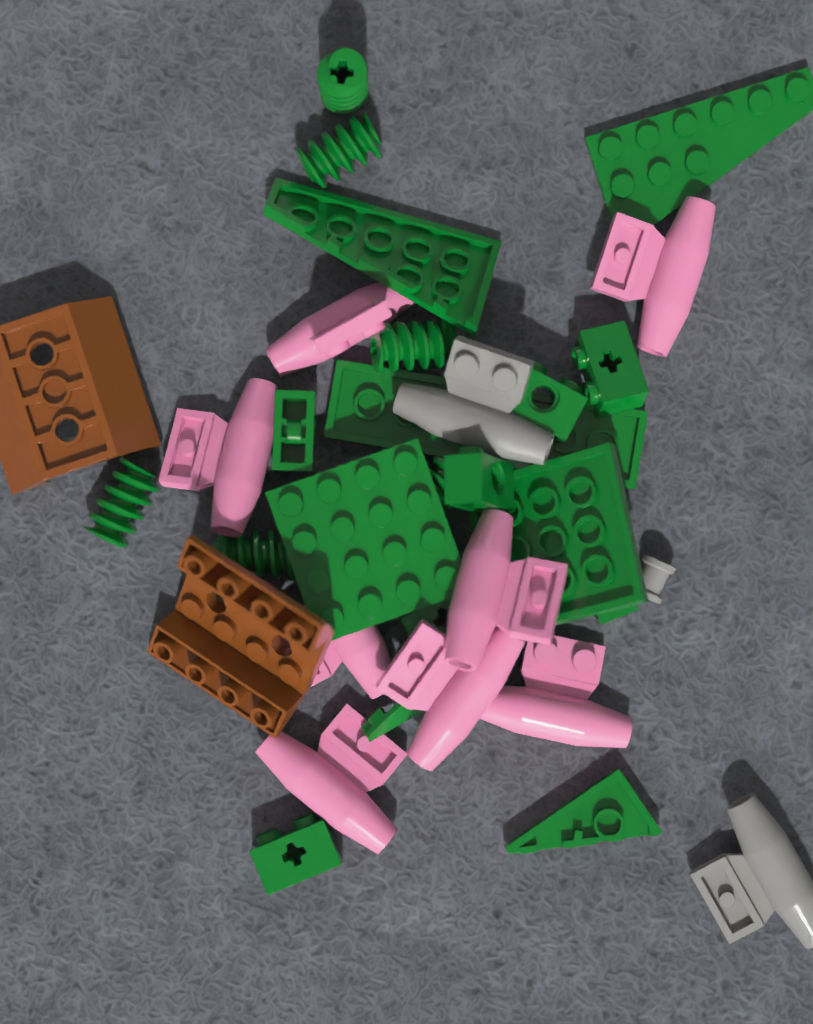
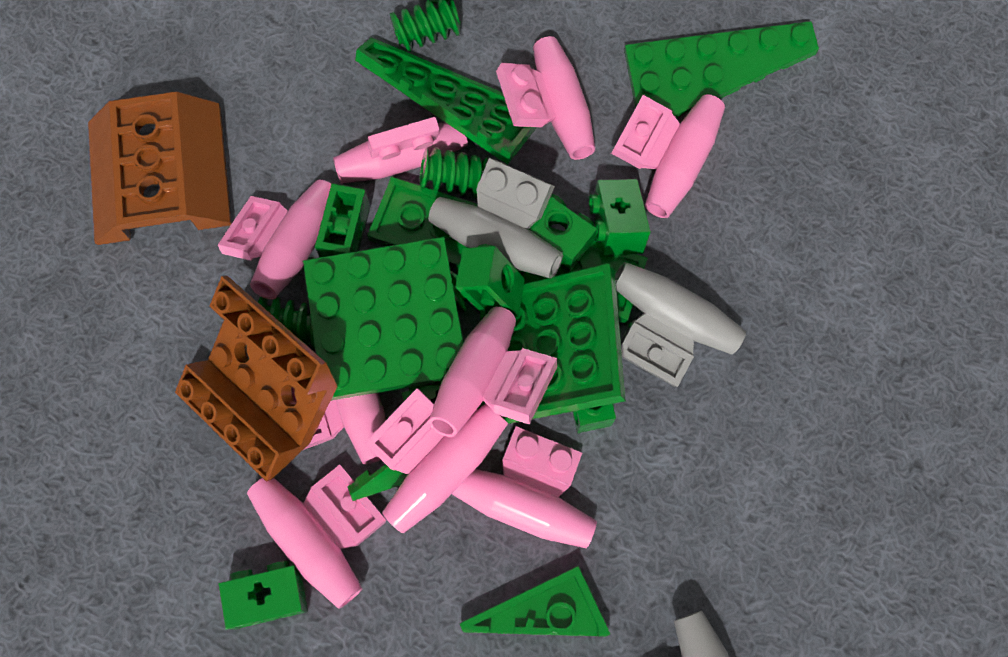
camera: 10 degrees right, 15 degrees down
(123, 504) = (185, 261): green piece -> none
(505, 227) = (549, 95): none -> bright pink plate
(655, 576) = (636, 395): light grey bush -> none
(683, 486) = (671, 322): none -> light grey plate

